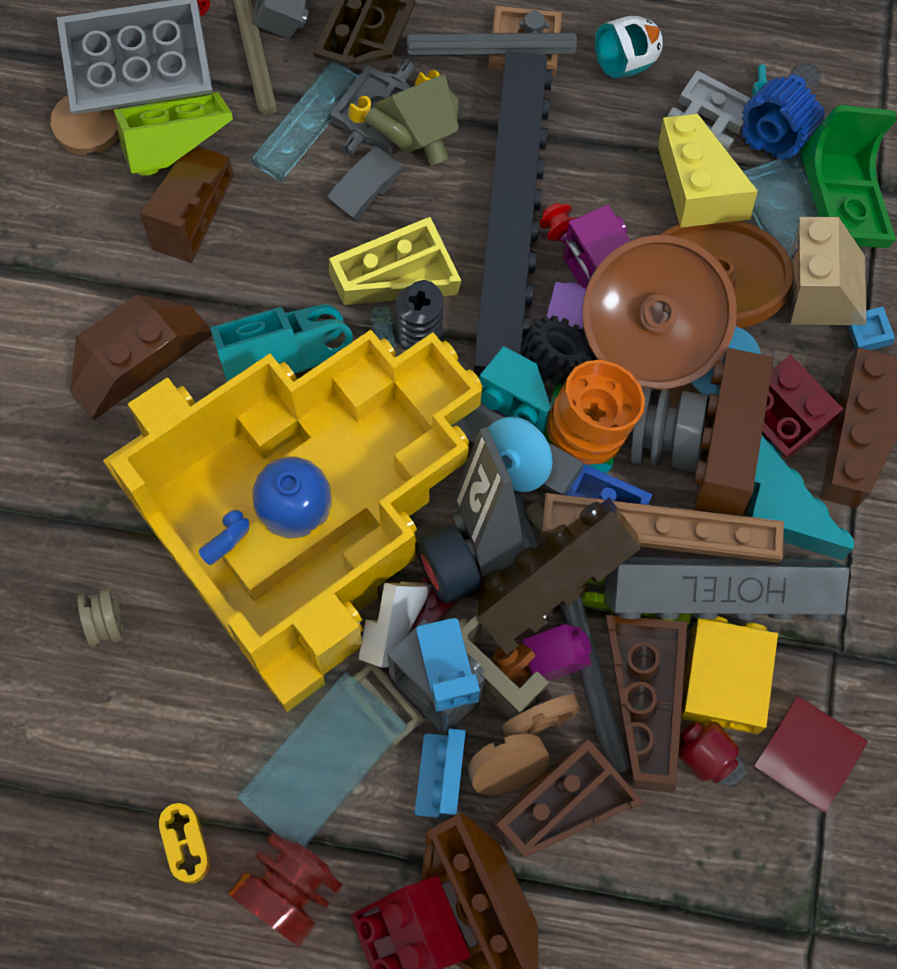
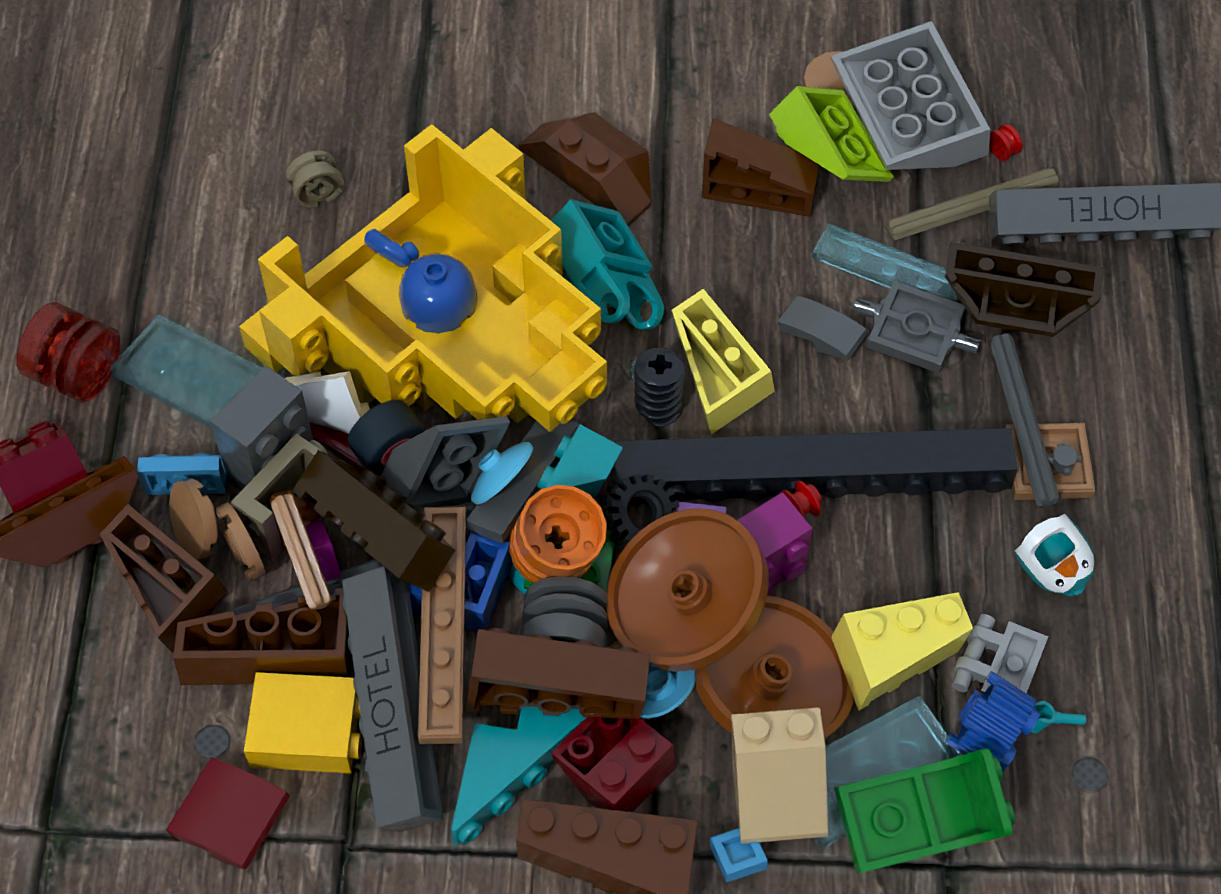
camera: 85 degrees right, 10 degrees down
(174, 846) = (116, 282): yellow beam -> none
(414, 116) = (906, 356): olive torso -> none
(447, 665) = (250, 407): dark azure bracket -> none
(577, 649) = (301, 552): none -> medium nougat axle
(708, 751) = (221, 707): dark red head -> none

